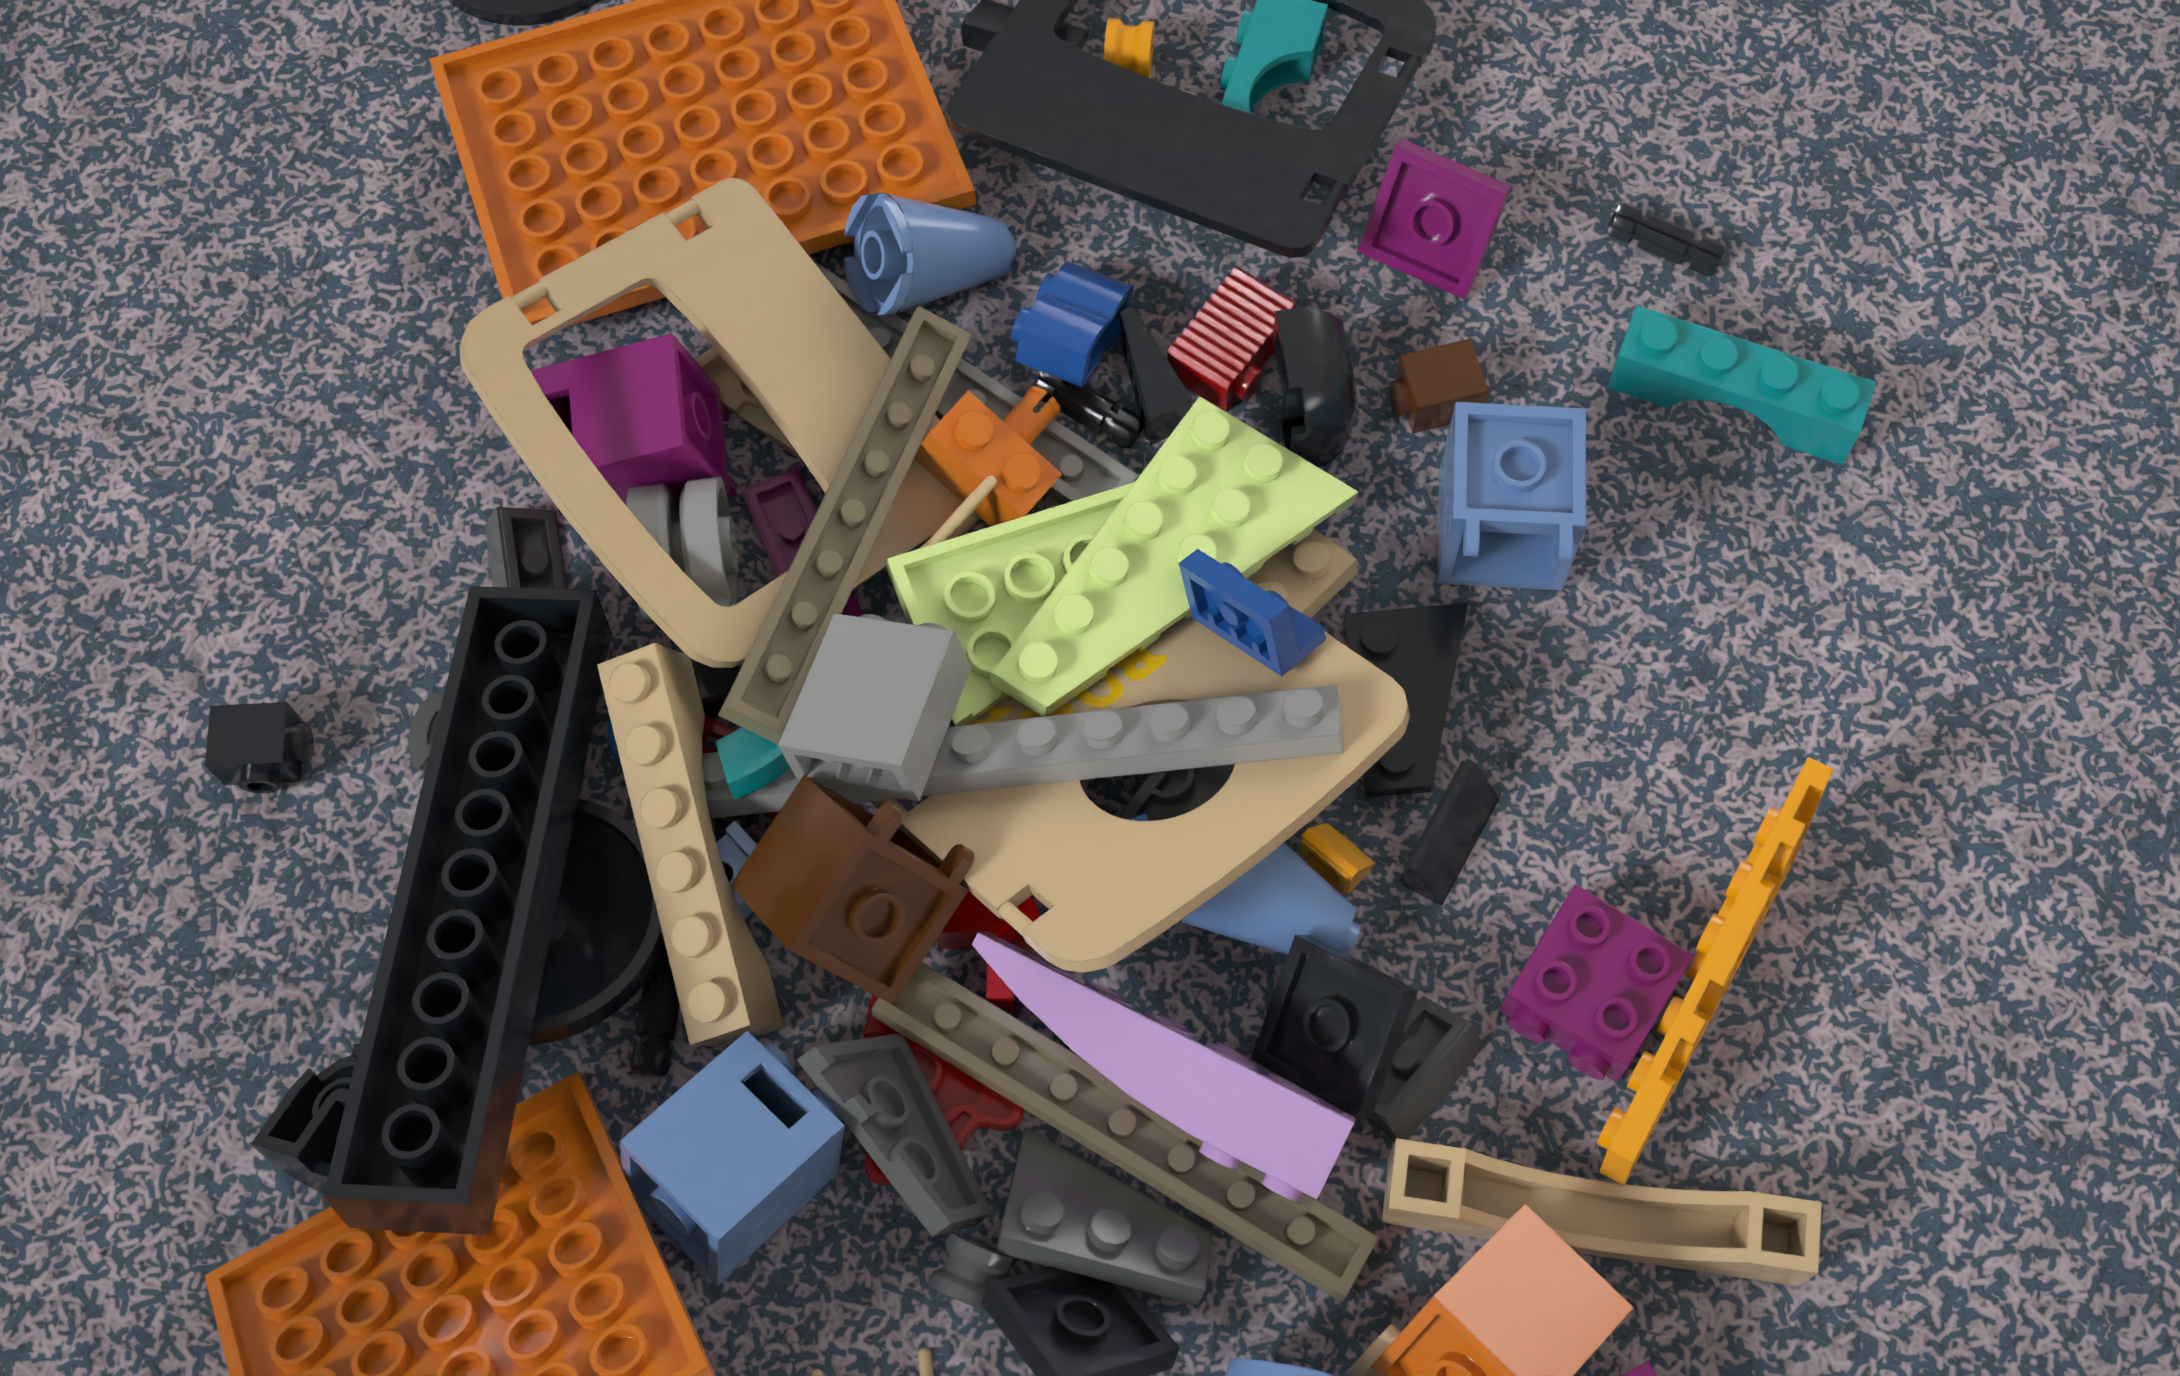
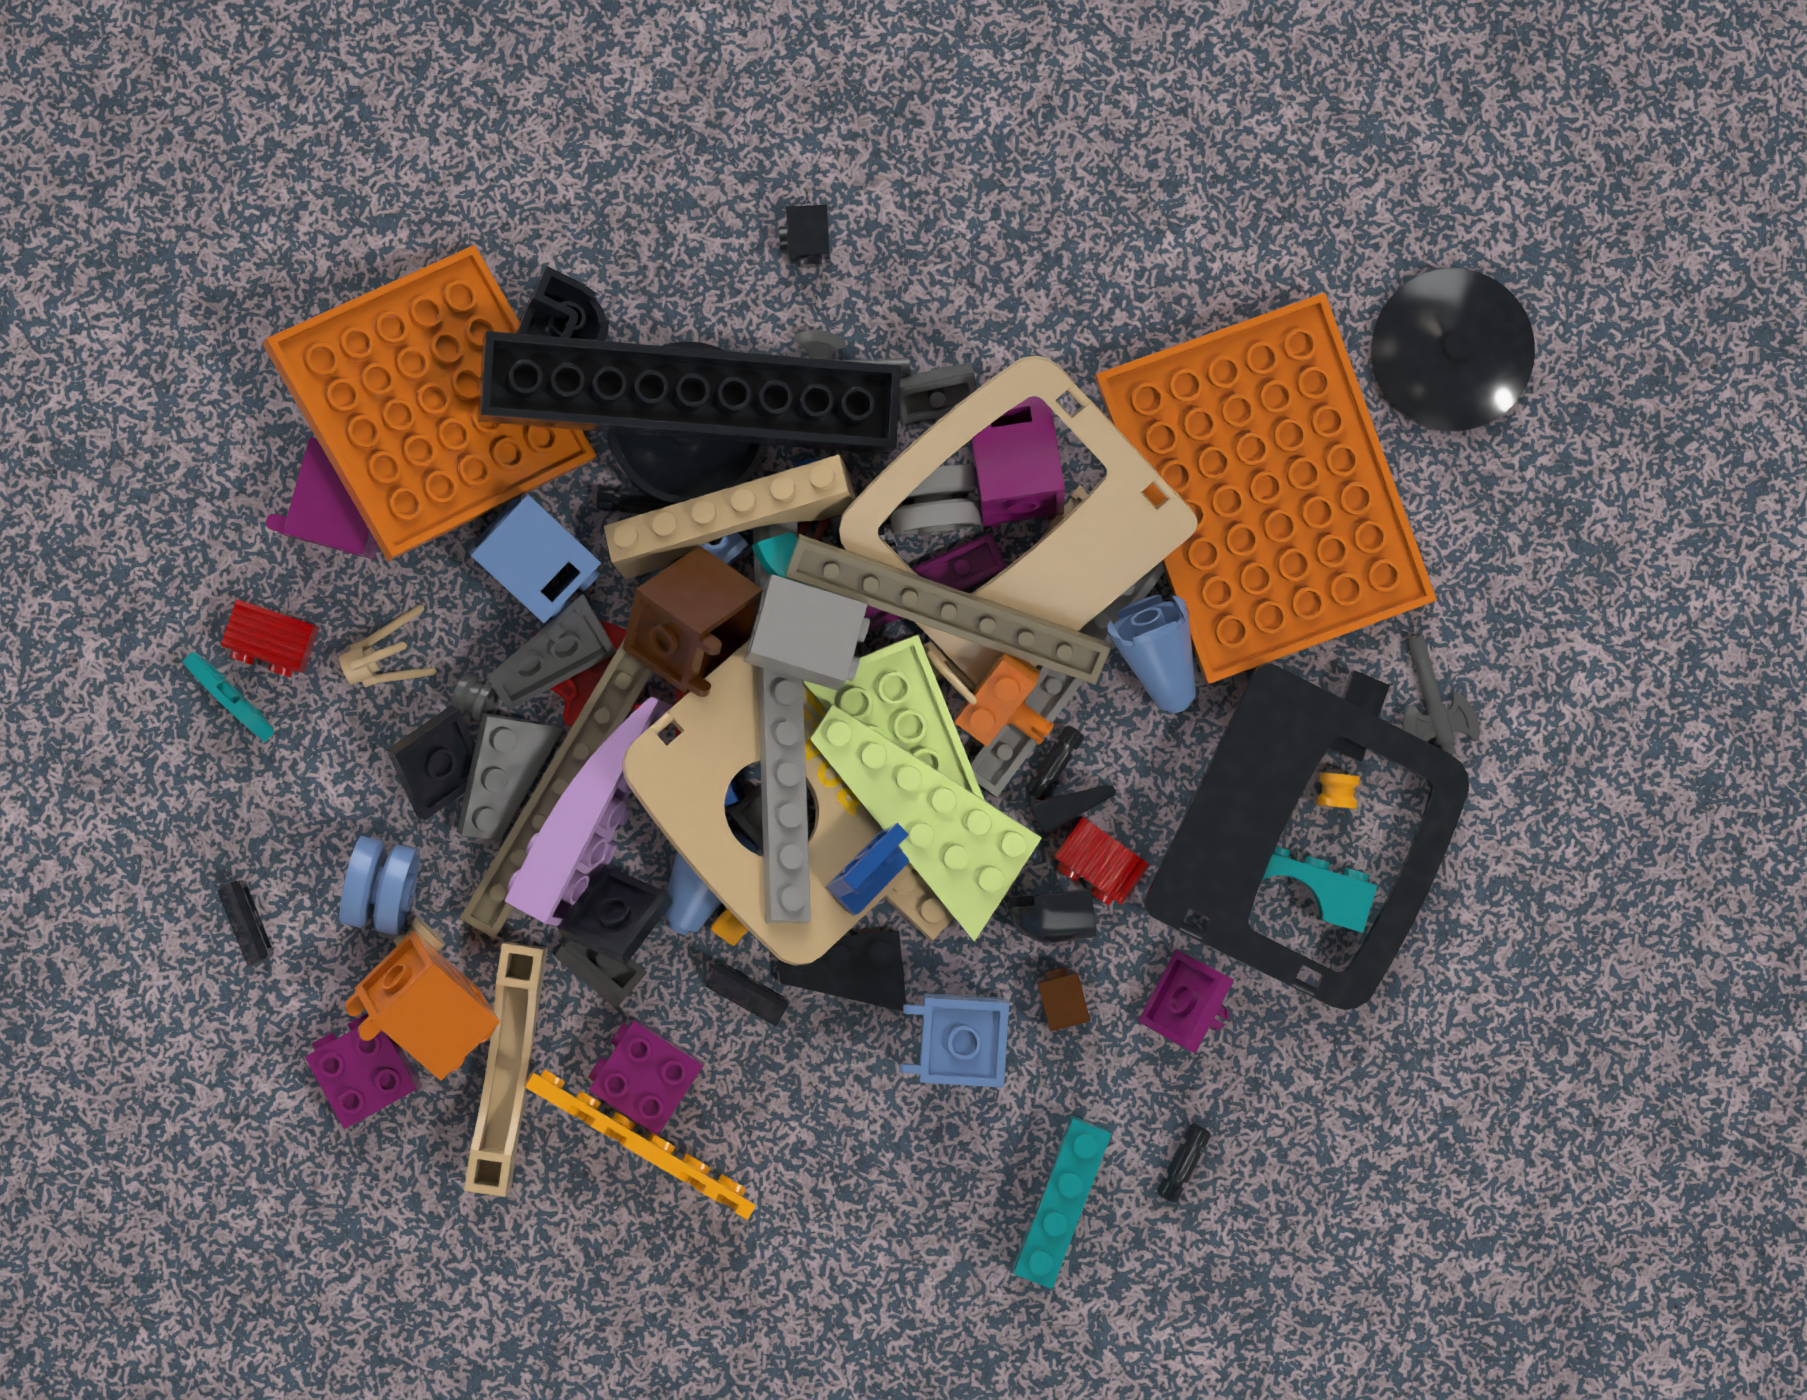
camera: 85 degrees right, 20 degrees up
(1071, 323) = (1110, 753): blue brick -> none

